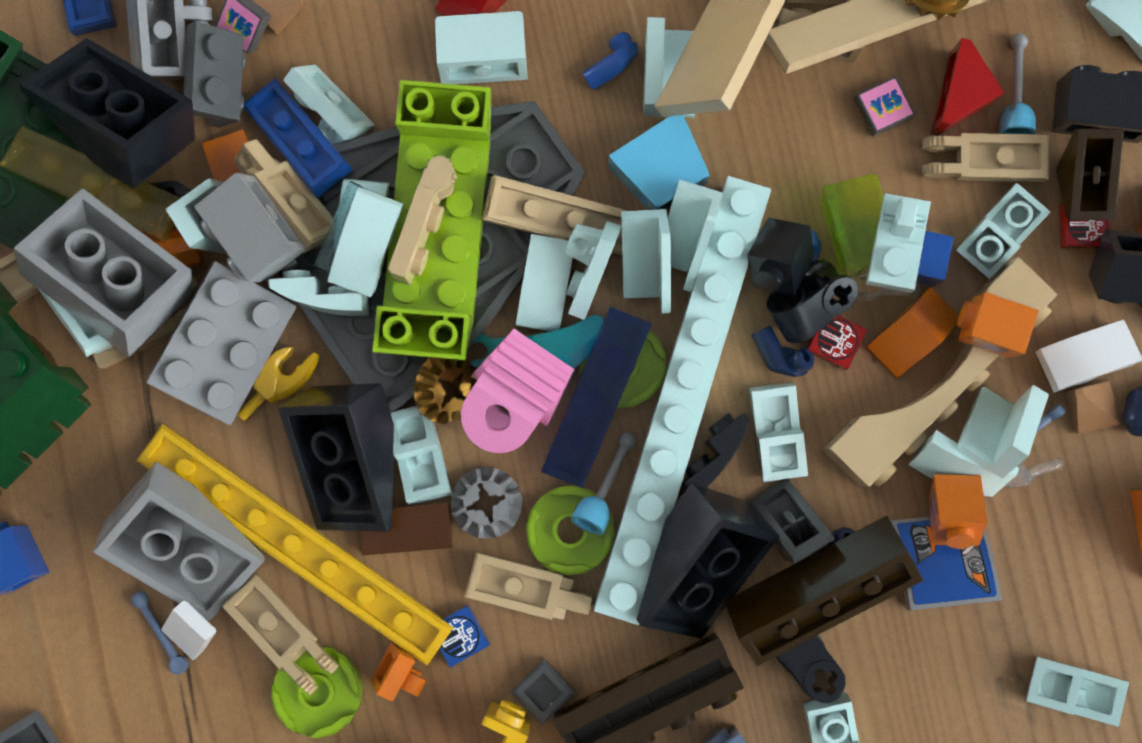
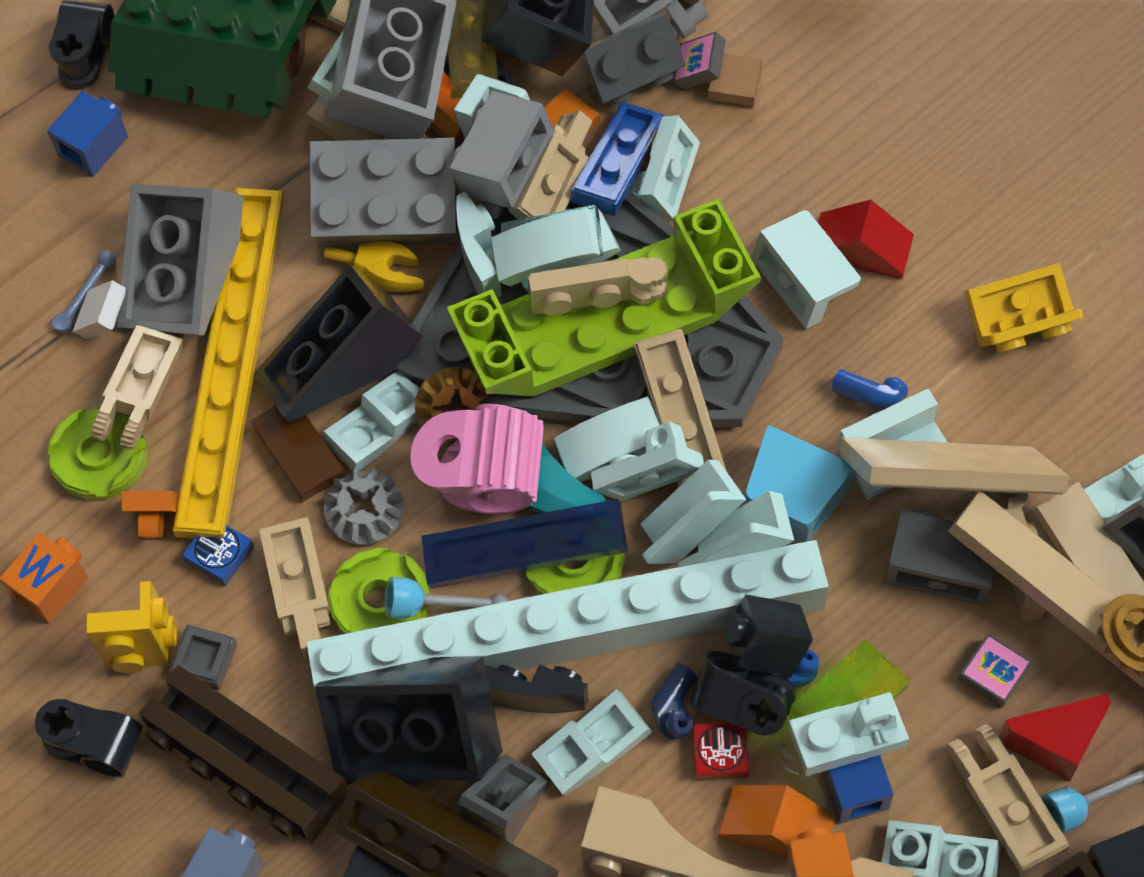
camera: 60 degrees right, 20 degrees down
(775, 98) = (935, 561): none -> dark grey slope

